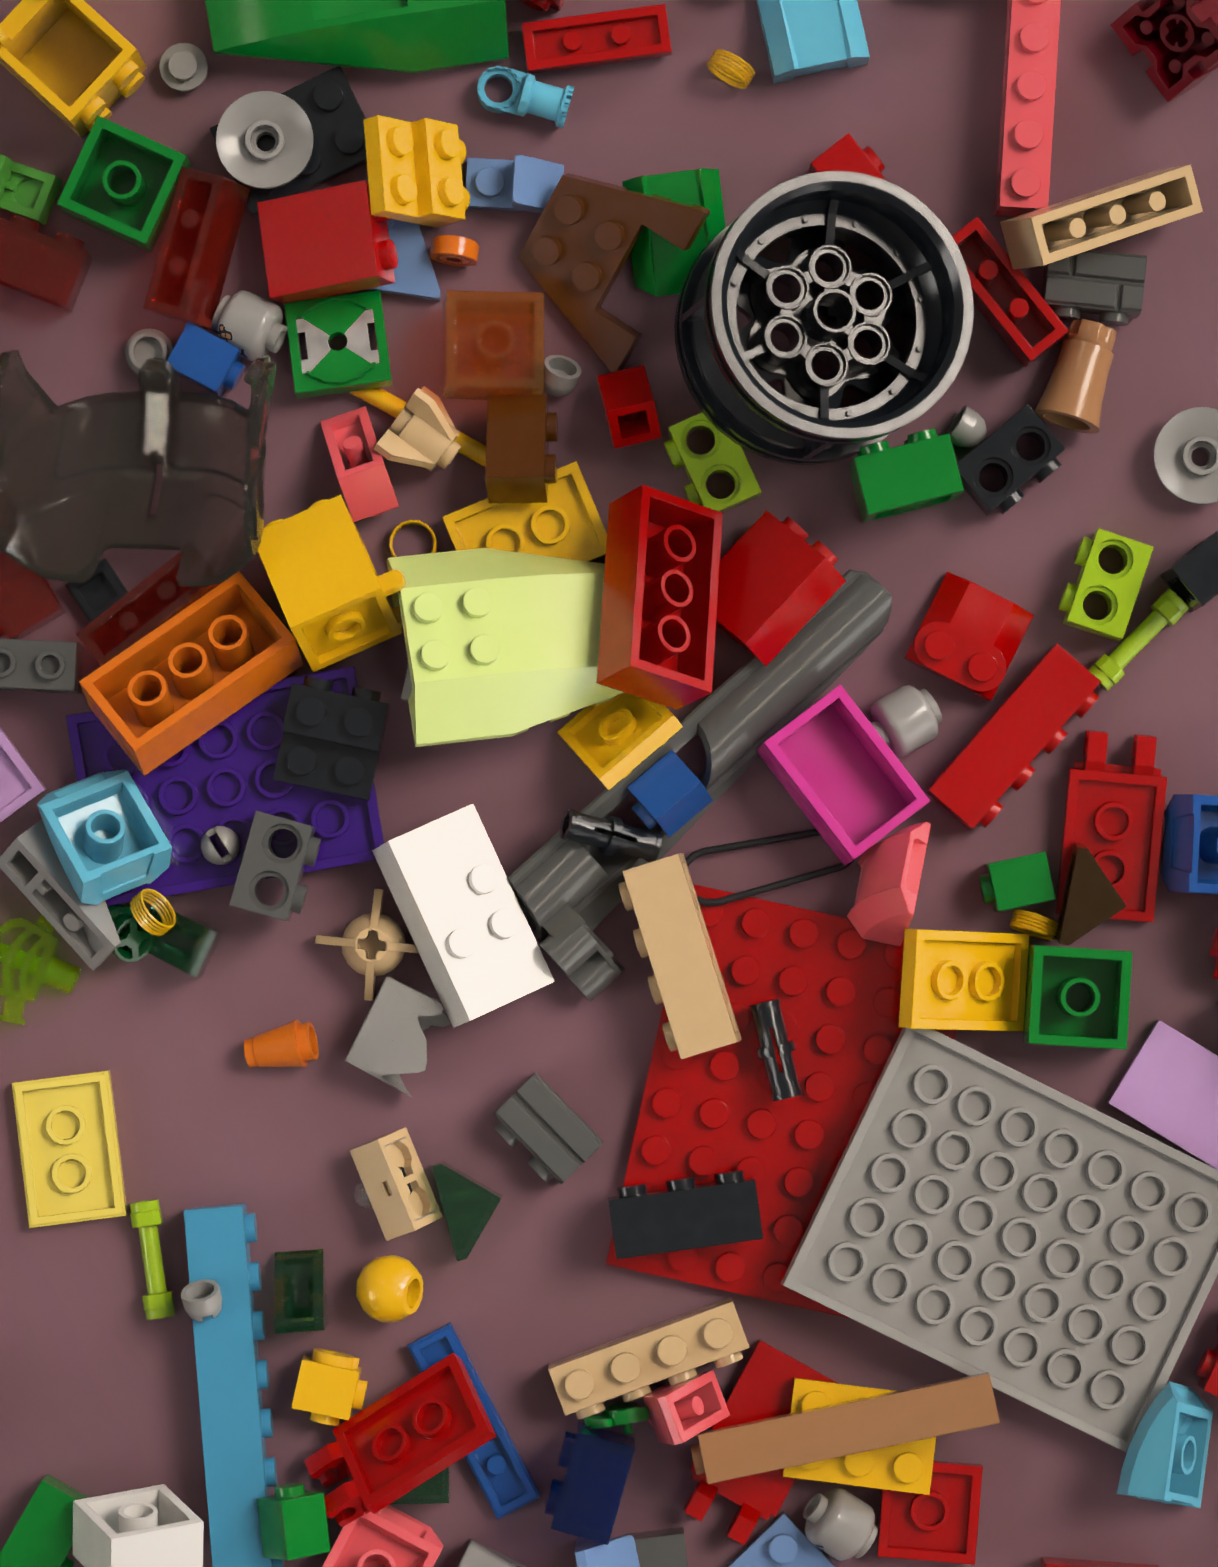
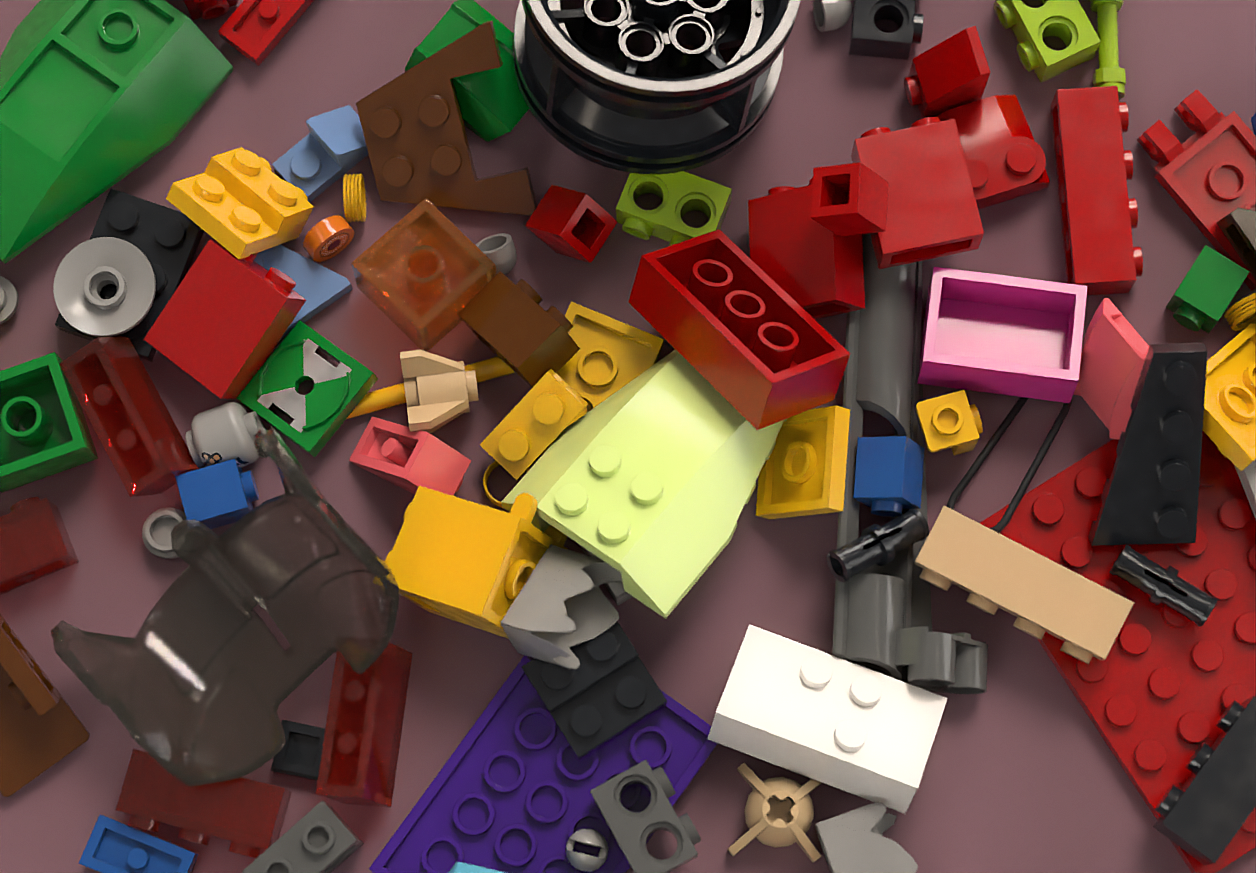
camera: 40 degrees left, 10 degrees down
(191, 673) = (435, 736): orange brick -> none
(354, 670) = (561, 606): none -> light grey piece
(464, 524) = (533, 424): none -> yellow plate
(507, 230) = (356, 198): none -> yellow axle
(527, 96) = (272, 79): medium azure connector -> none
(546, 1129) = (1053, 820): dark grey brick -> none
(746, 799) = (949, 423): none -> yellow bracket
(816, 587) = (849, 199): none -> red brick
(854, 962) = (1159, 454): none -> black wing
(880, 621) = (928, 192): none -> red brick
(905, 476) = (826, 76): green brick -> none
(906, 719) = (1005, 249): light grey head -> none
(991, 558) = (948, 74): none -> red slope

